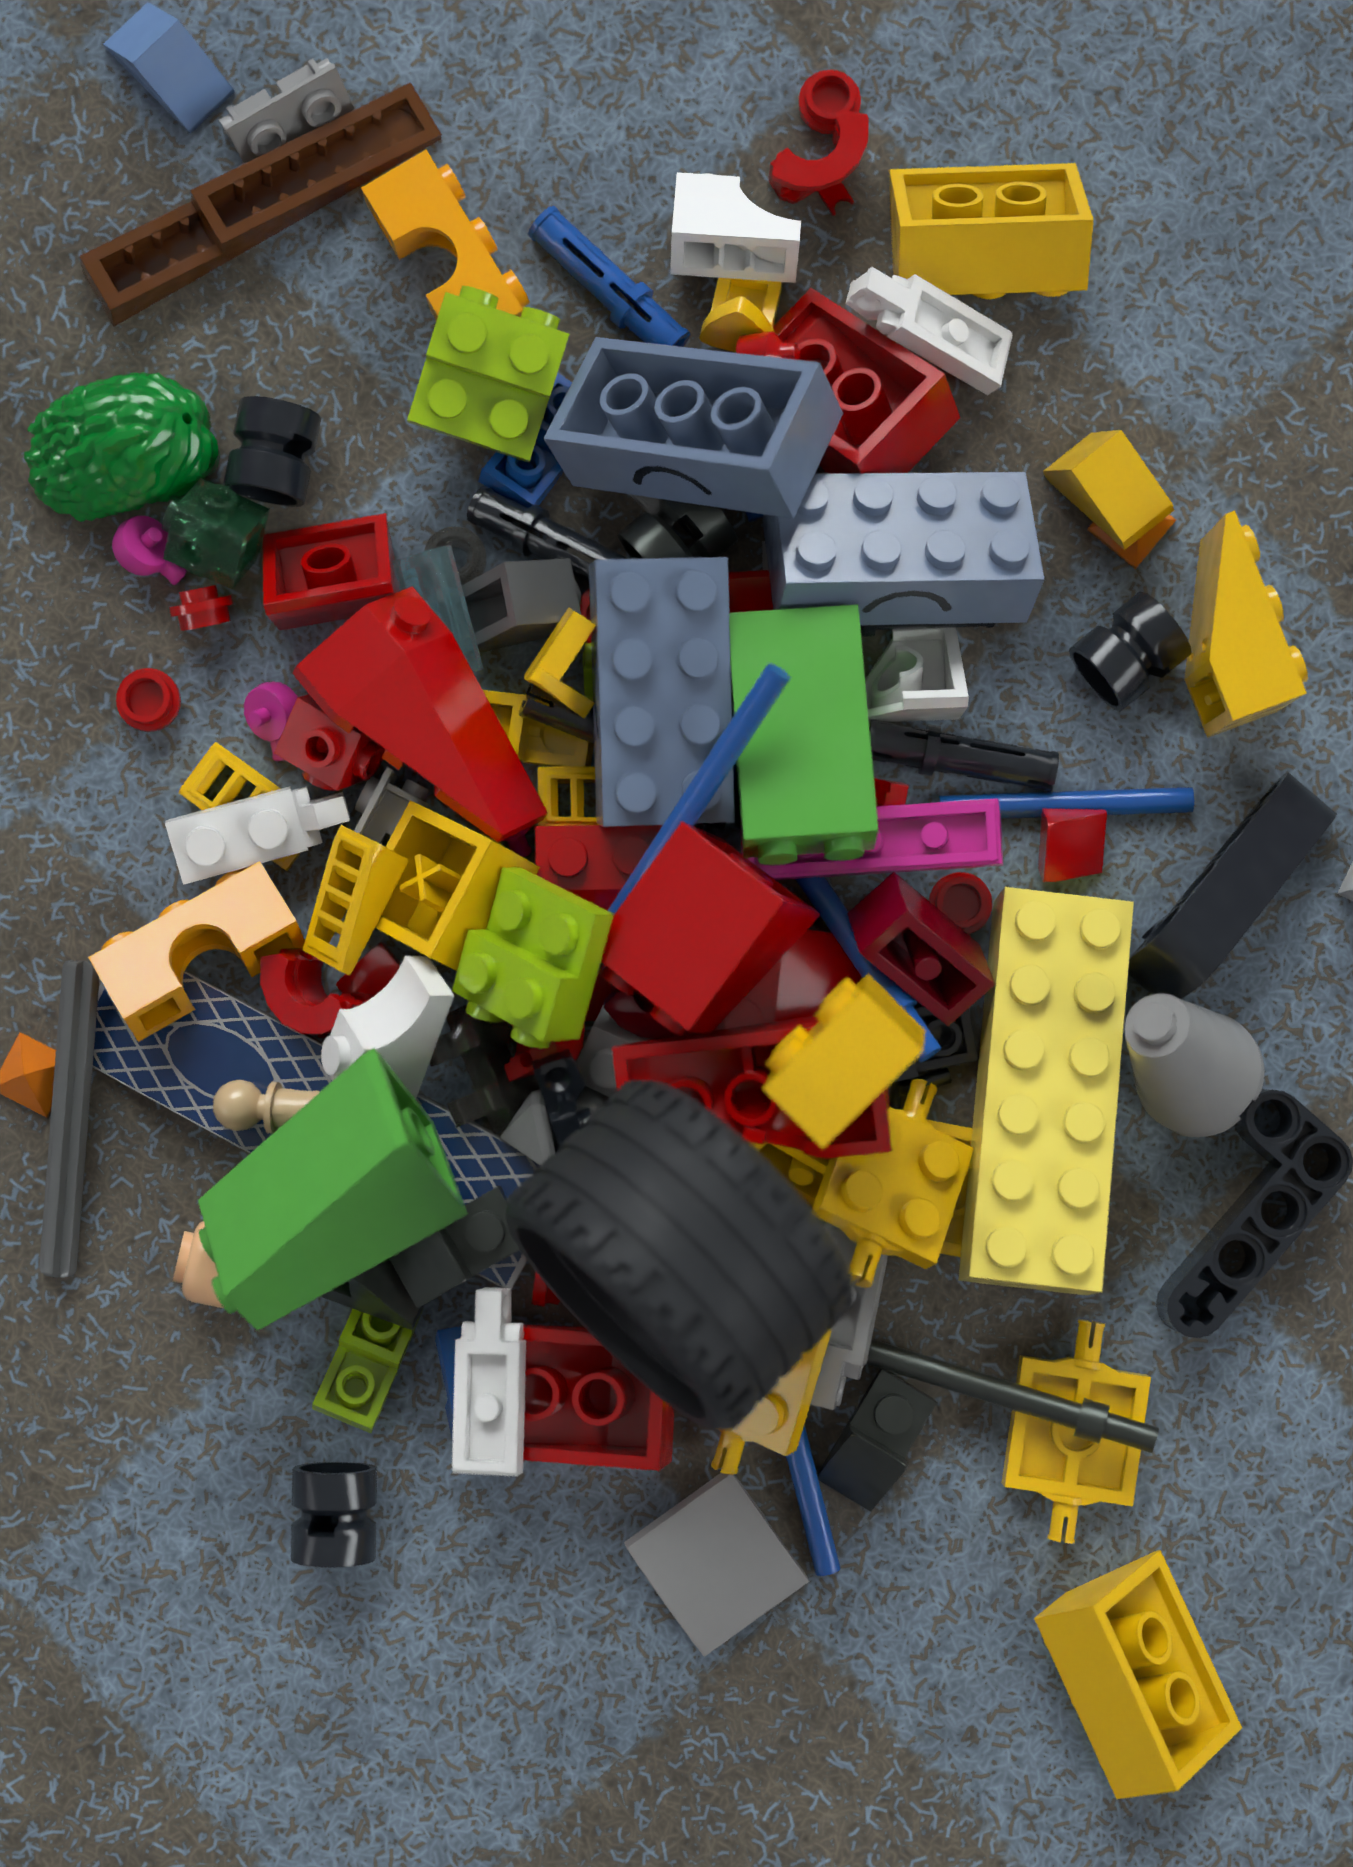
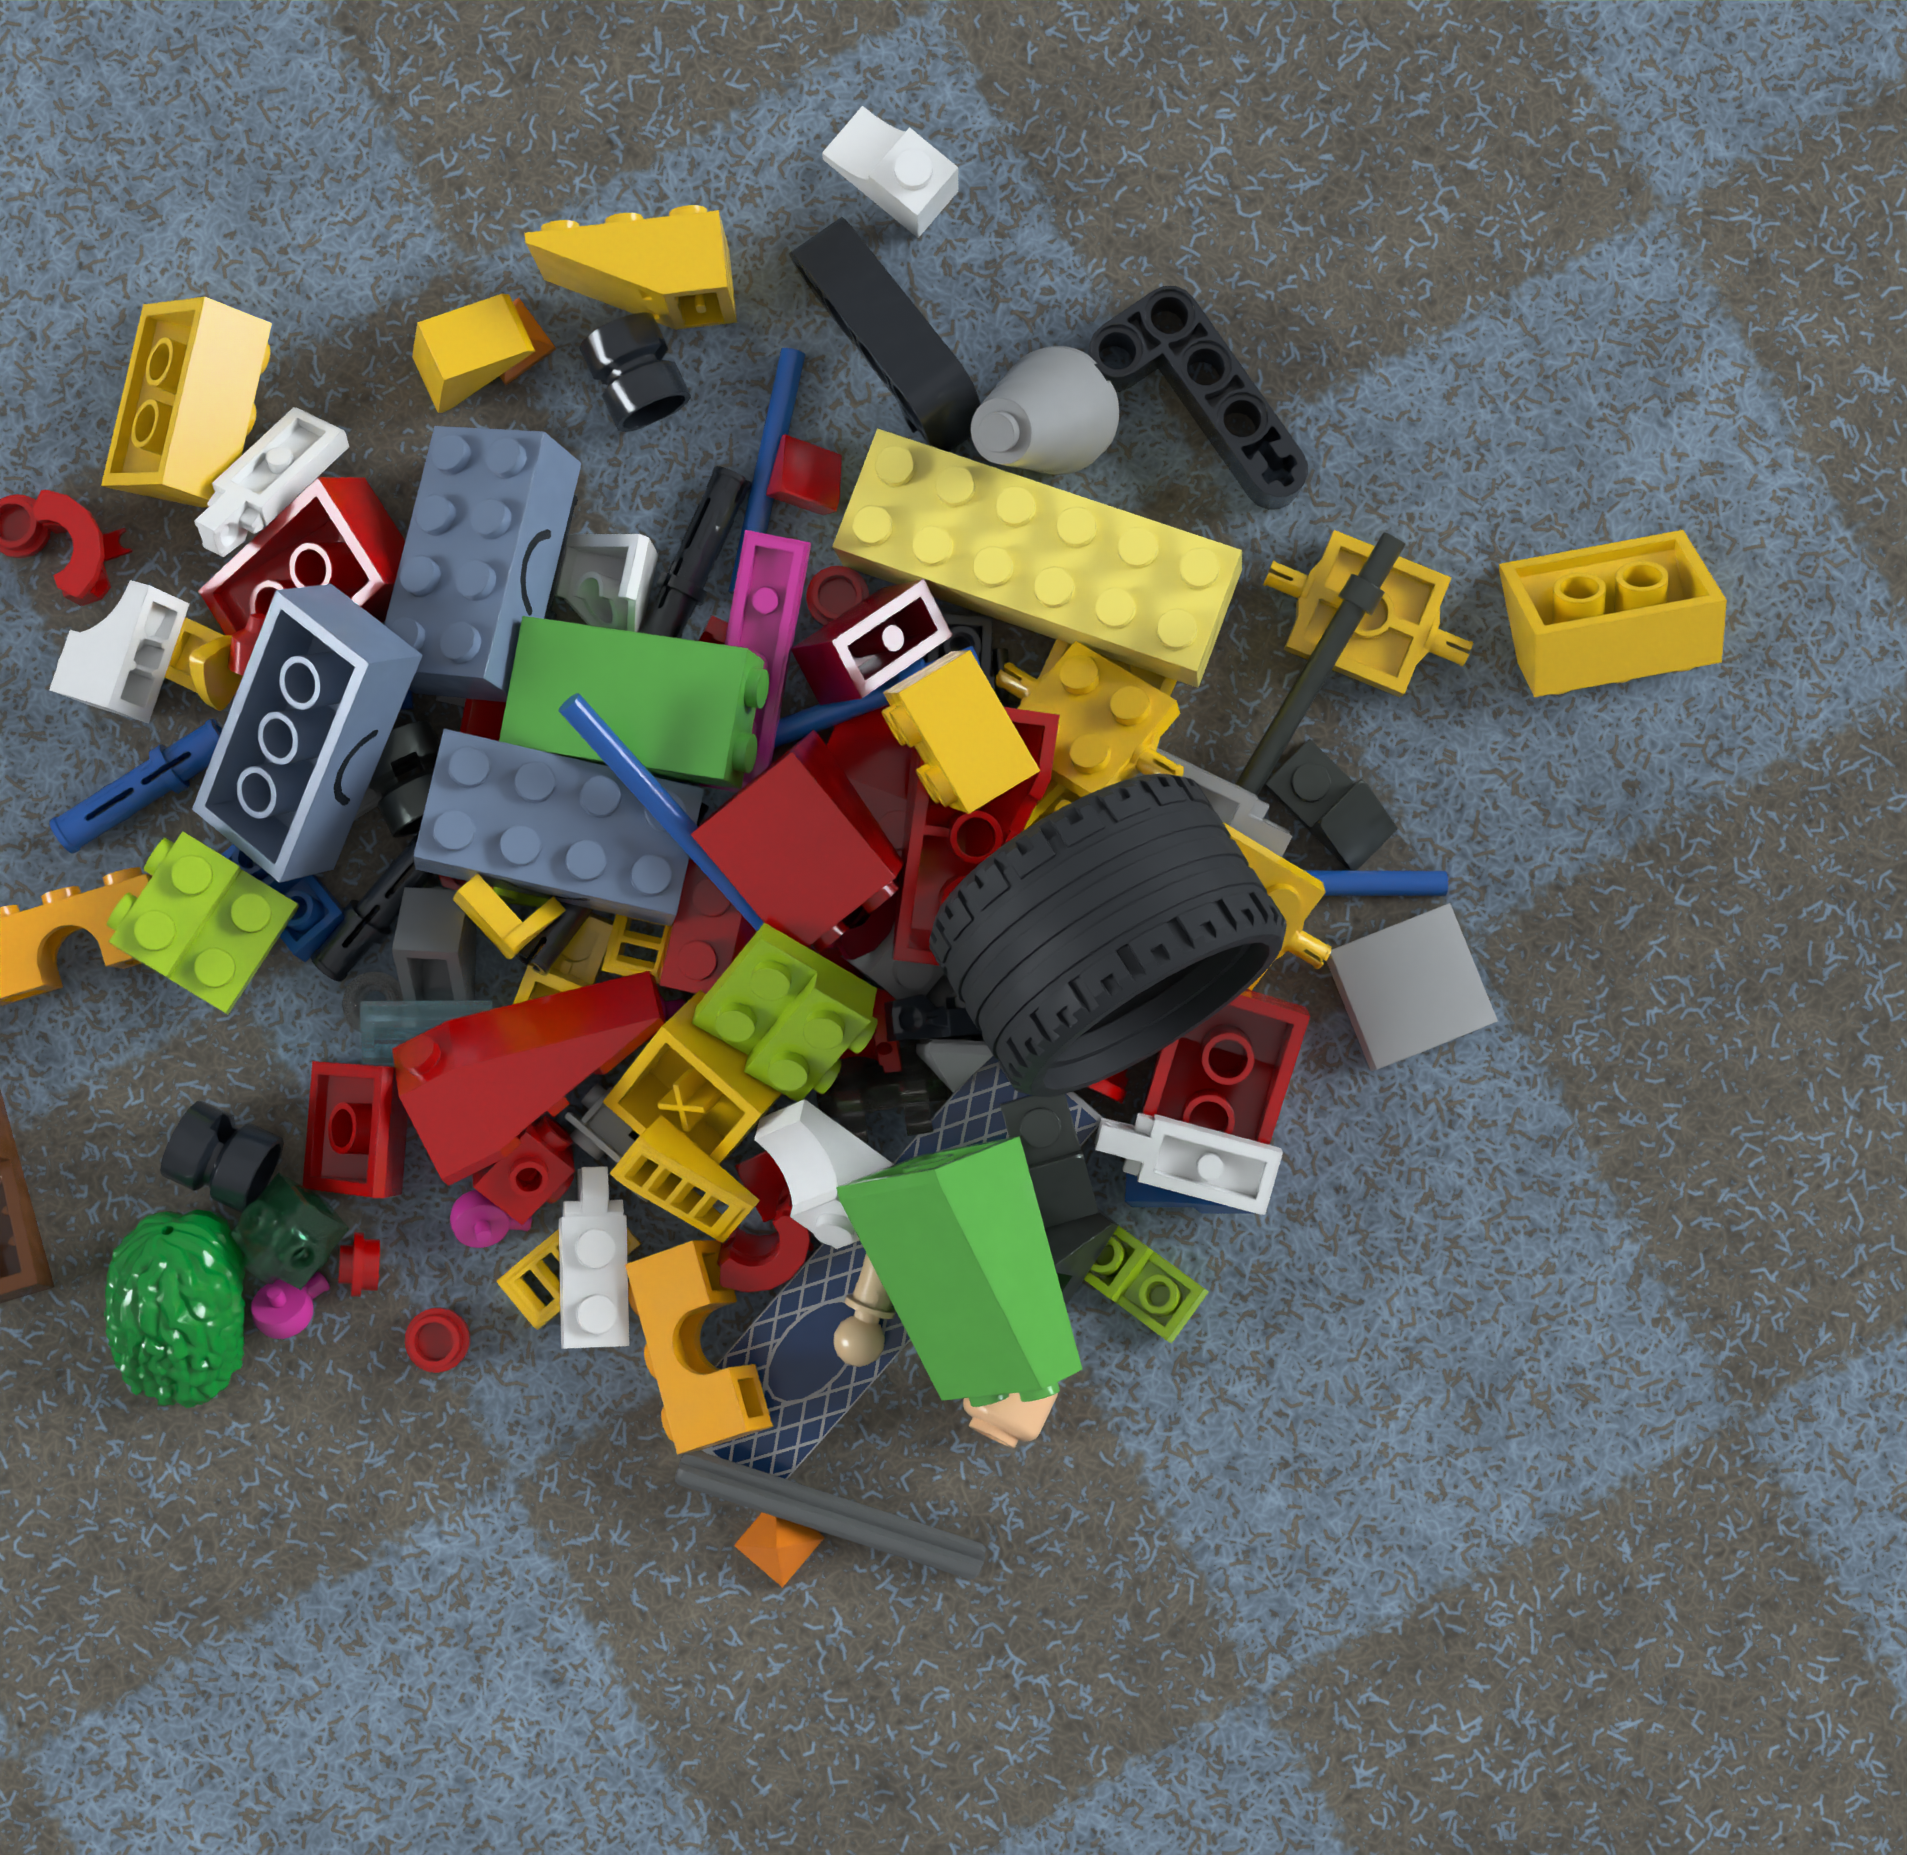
camera: 80 degrees left, 0 degrees up
(330, 1491) = (1254, 1342): black wheel -> none

